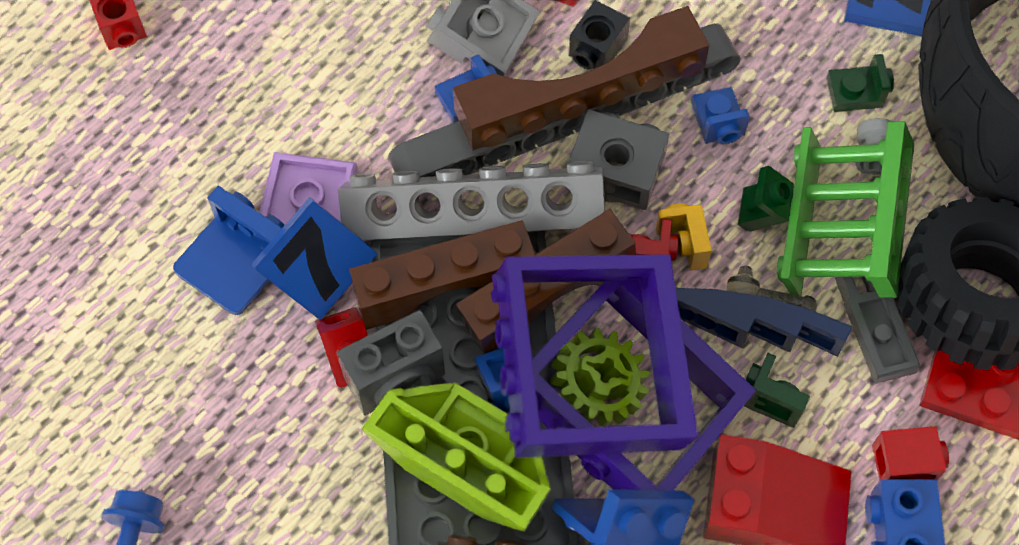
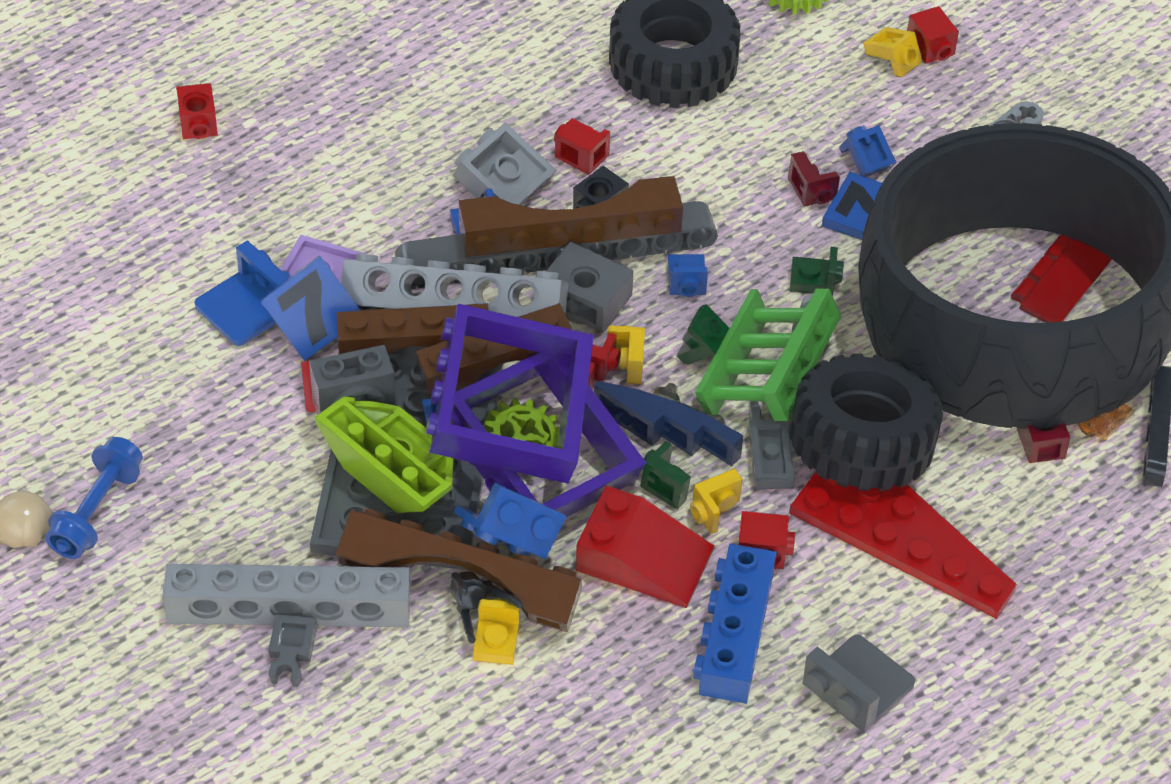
camera: 10 degrees right, 15 degrees down
(836, 411) = (713, 496): none -> yellow bracket

